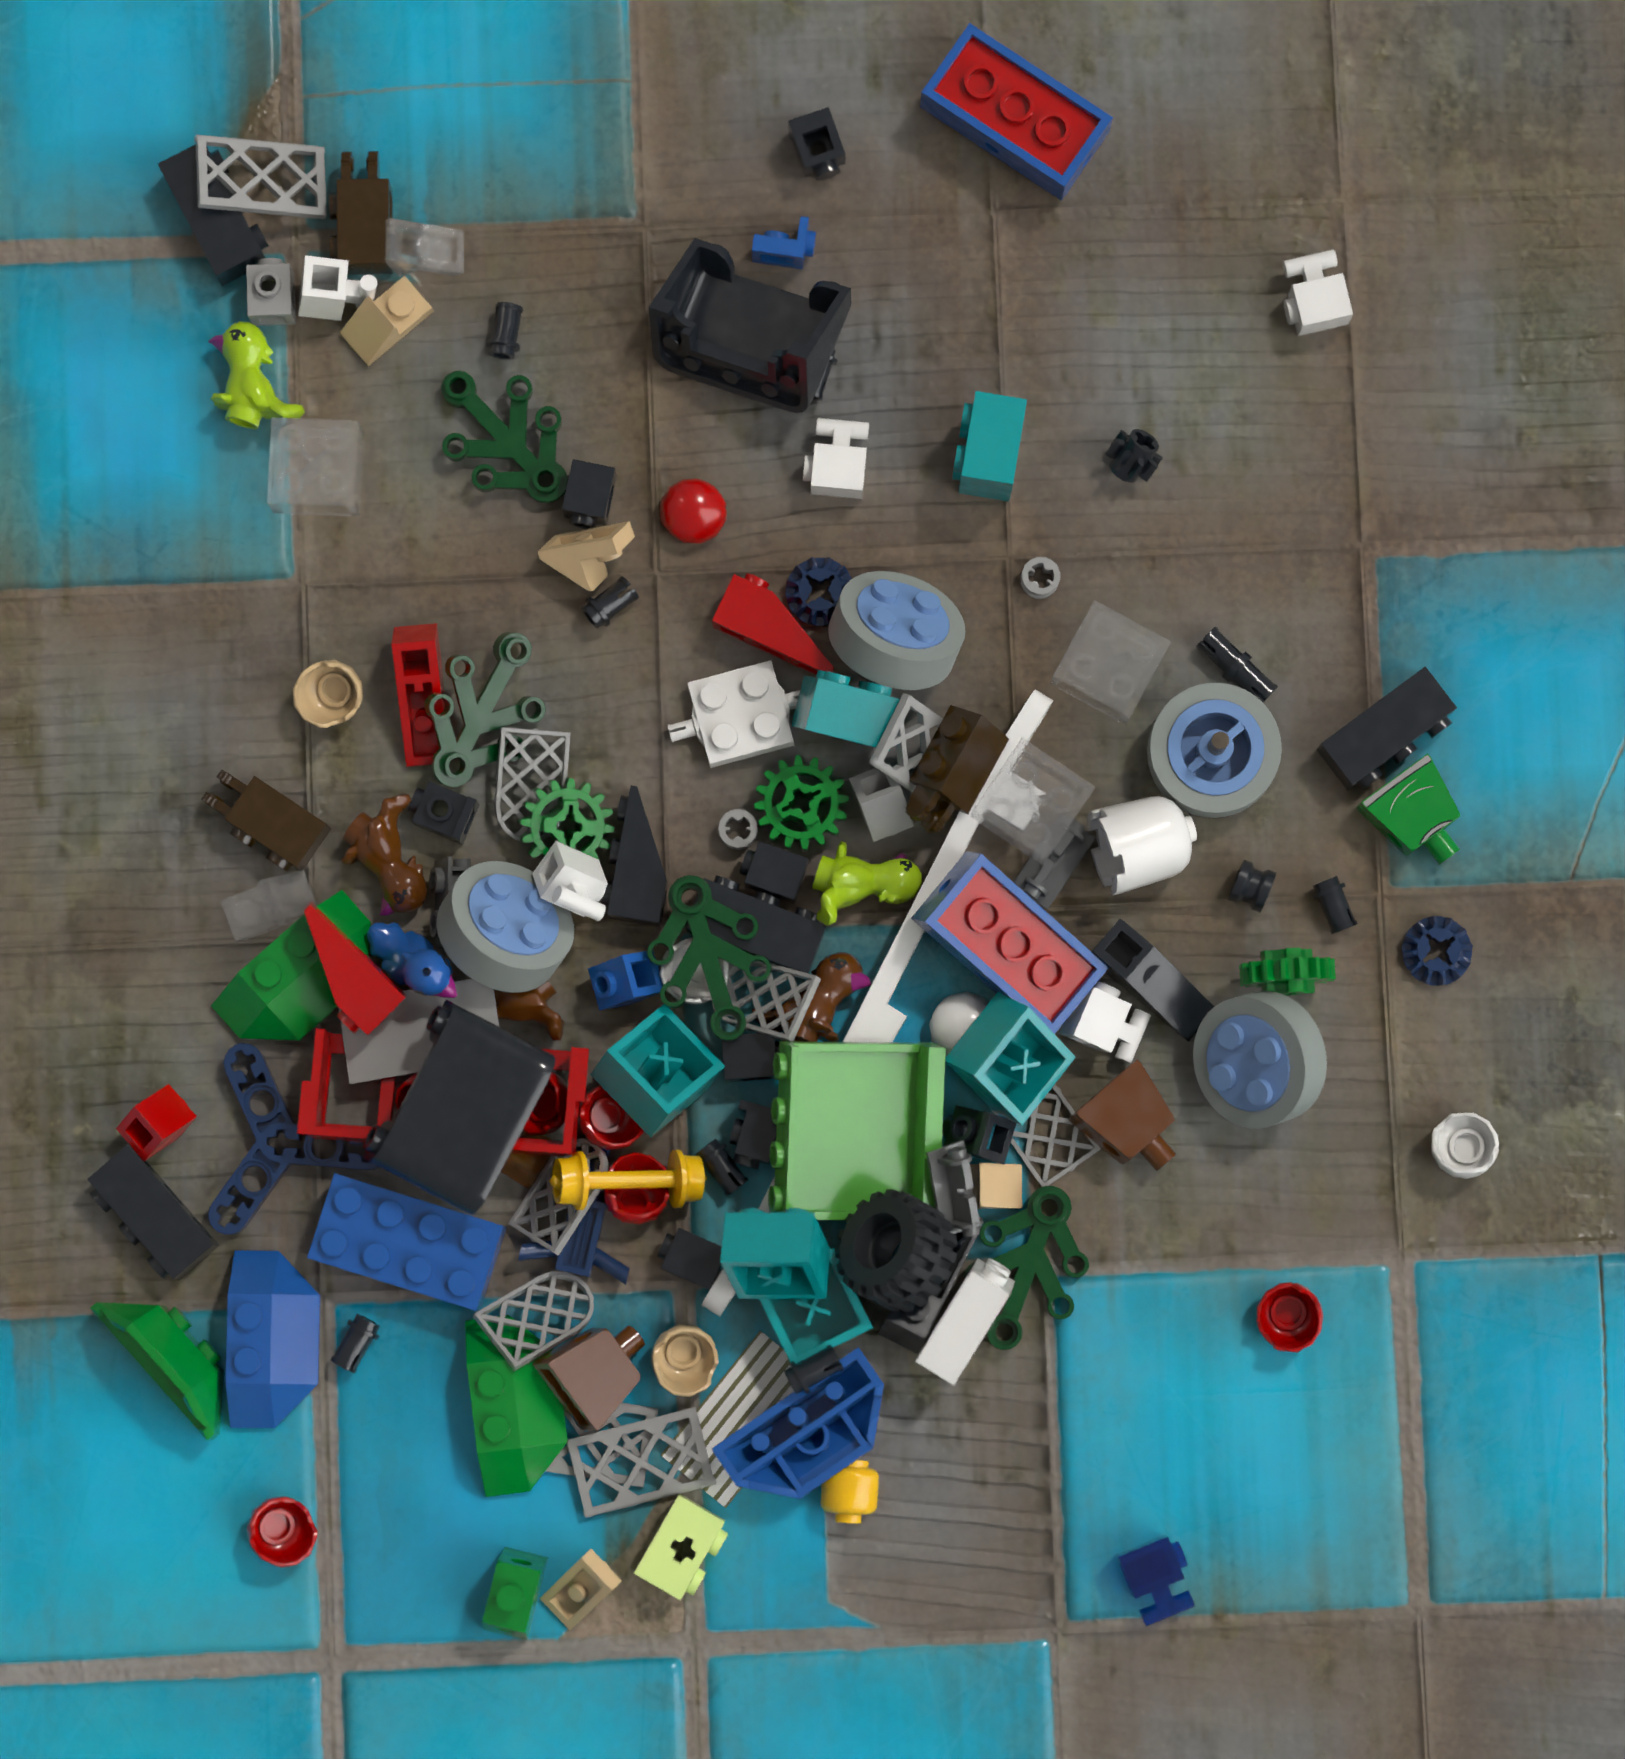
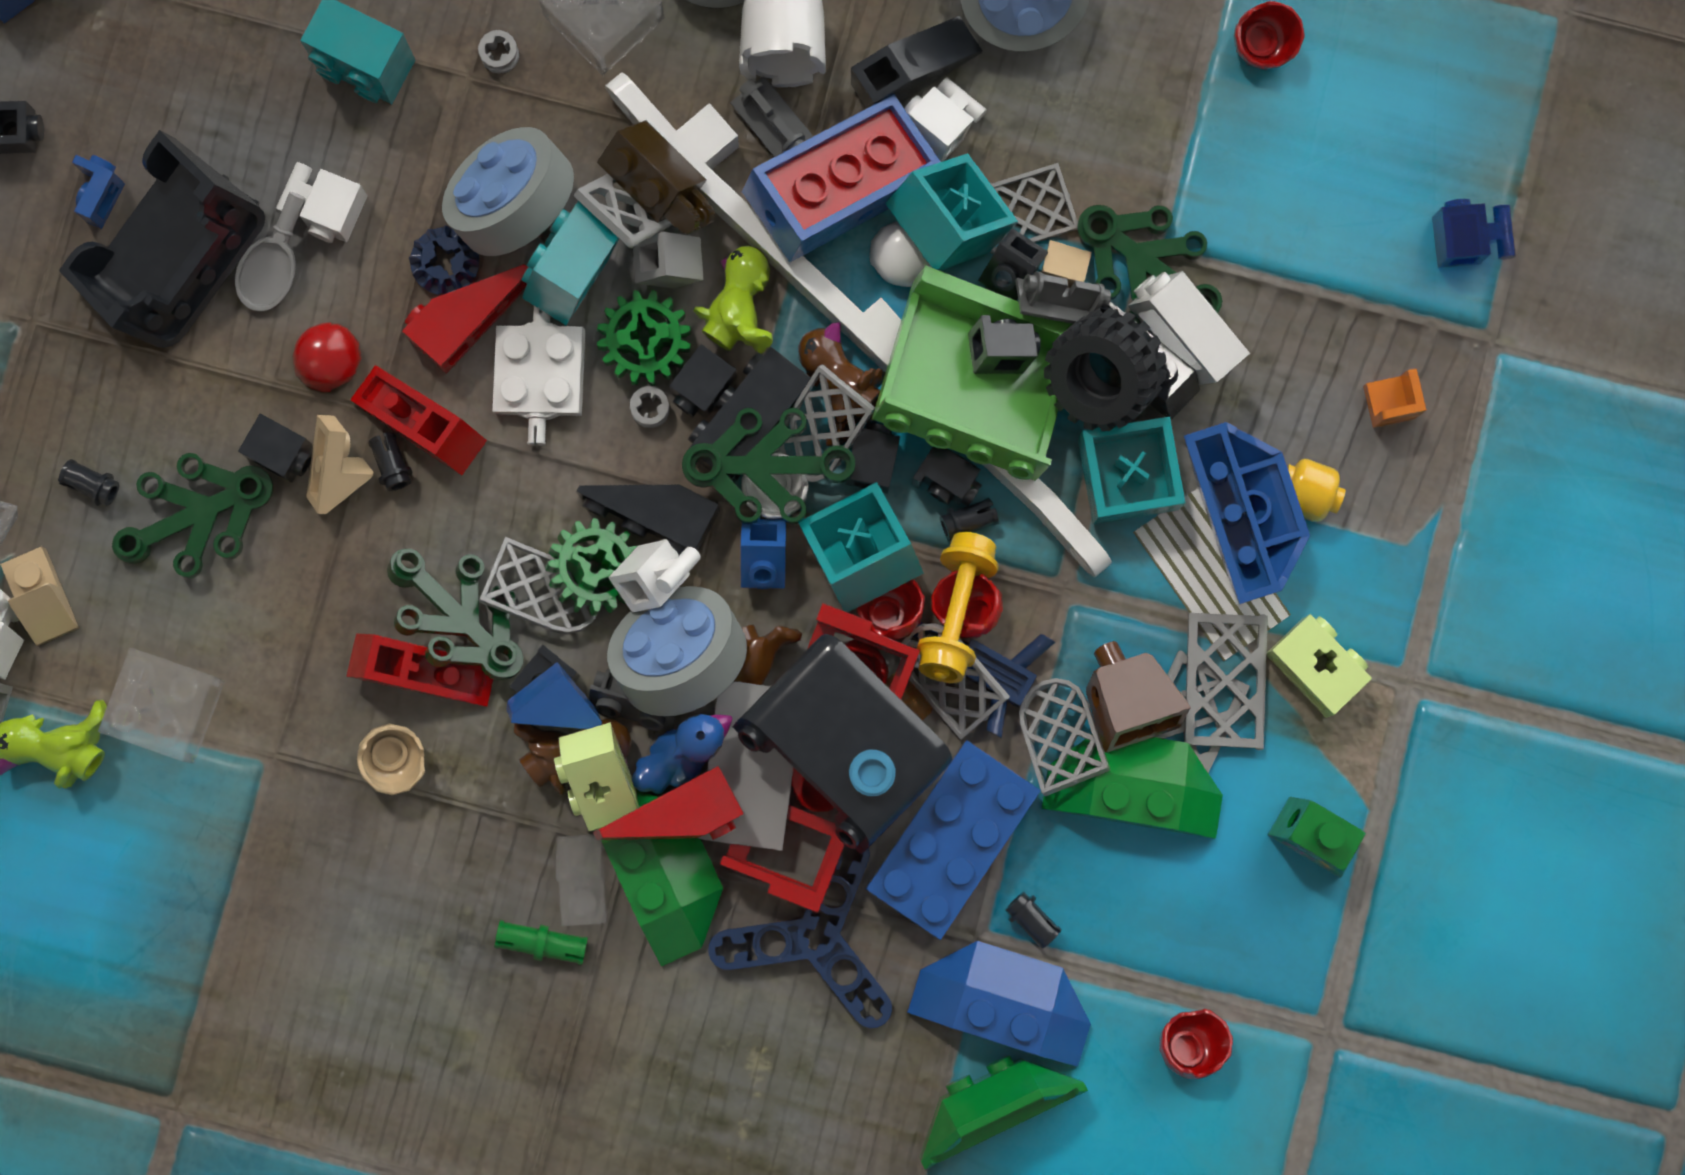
camera: 80 degrees left, 0 degrees up
(151, 1214) = (848, 1083): black brick -> none
(156, 1122) = (761, 1051): red brick -> none
(199, 886) = (540, 942): none -> green pin
(270, 820) = (498, 853): dark brown hinge -> none
(365, 888) = (596, 775): none -> yellowish green brick
(422, 827) = (553, 701): none -> blue slope
(435, 1141) = (872, 772): none -> dark azure tile
(580, 1589) = (1331, 770): tan slope -> none
(656, 616) = (419, 420): none -> red slope
(684, 1360) = (1143, 608): tan hair -> none
(691, 1257) = (1048, 571): black brick -> none
(761, 429) = (270, 264): none -> light grey piece
(775, 1254) = (1077, 480): teal brick -> none
(813, 1369) = (1195, 482): black pin -> none
(893, 1147) = (1002, 346): none -> brick
(965, 1546) = (1395, 399): none -> orange panel
(1032, 801) = (715, 110): clear brick -> none
(1128, 1118) = (1037, 125): reddish brown torso -> none

